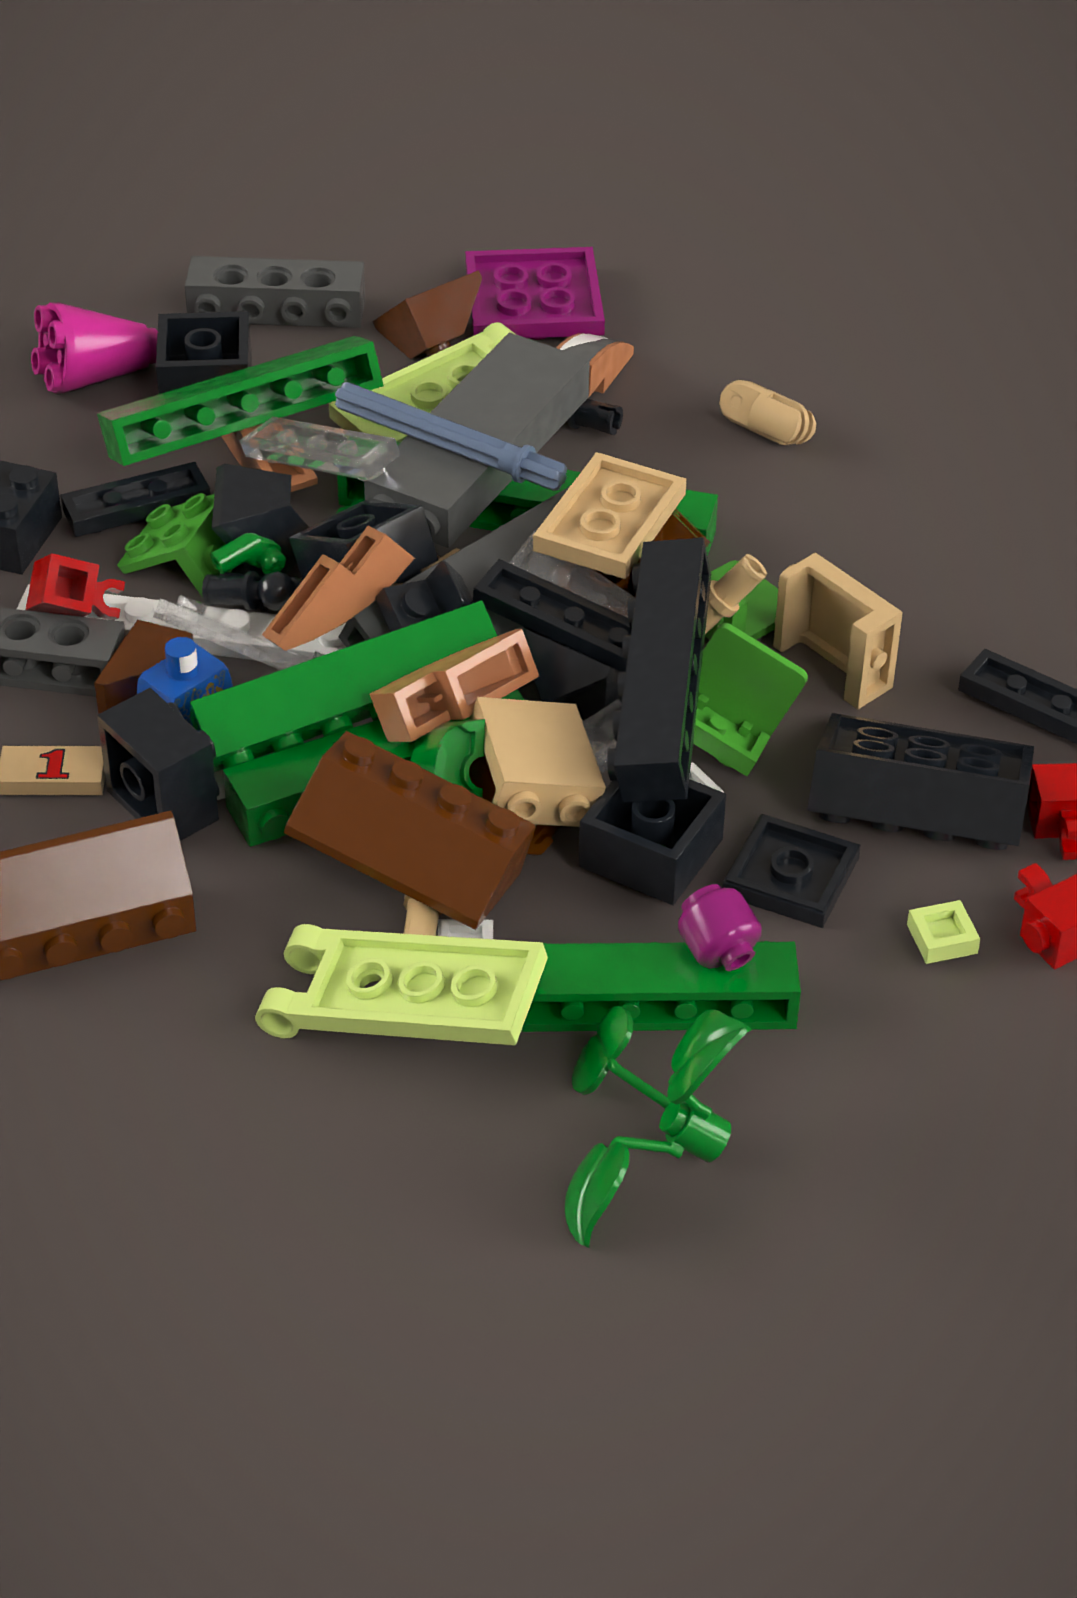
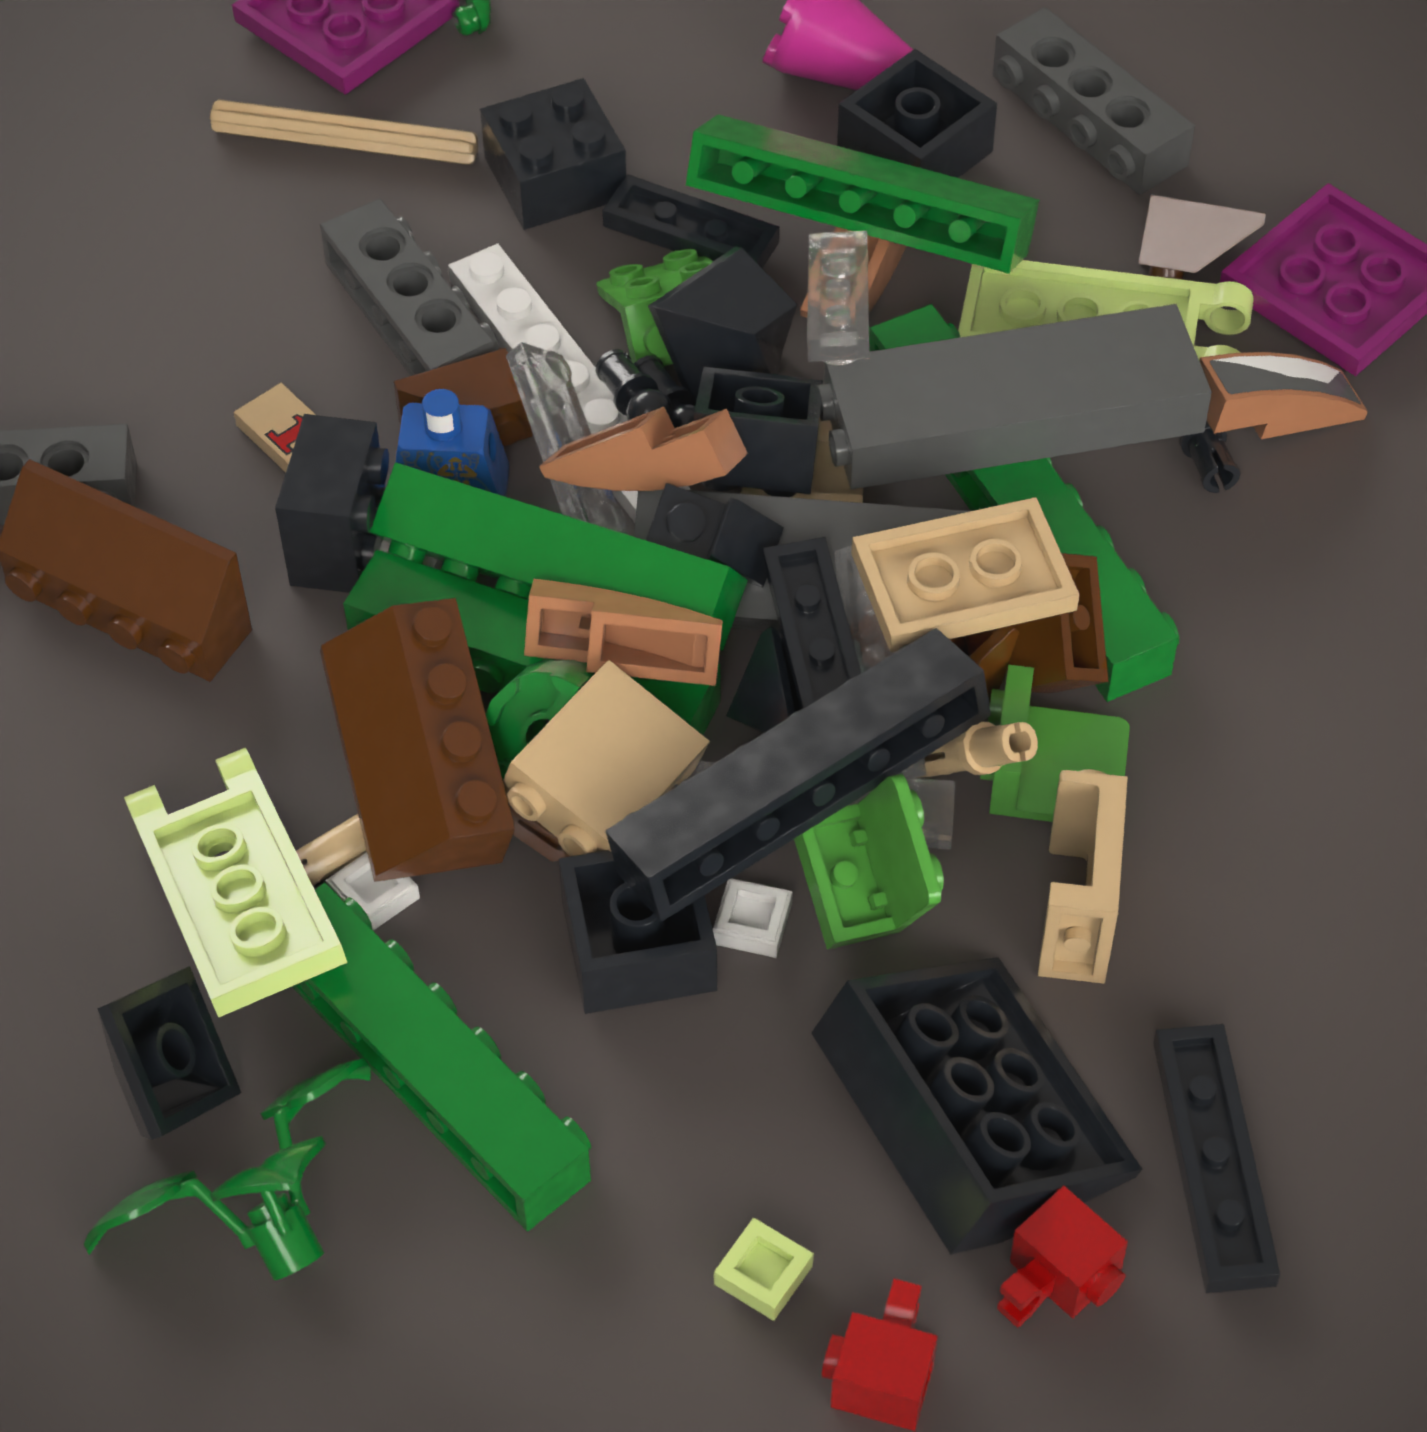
camera: 50 degrees right, 10 degrees up
(70, 588) = (475, 273): red brick -> none
(252, 550) = (672, 351): green arm -> none
(504, 1111) = (167, 1054): none -> black slope
(517, 461) = (972, 451): sand blue axle -> none
(719, 927) = (513, 1071): magenta head -> none
(767, 413) = (1385, 589): tan arm -> none
(792, 870) = (733, 1078): black tile -> none

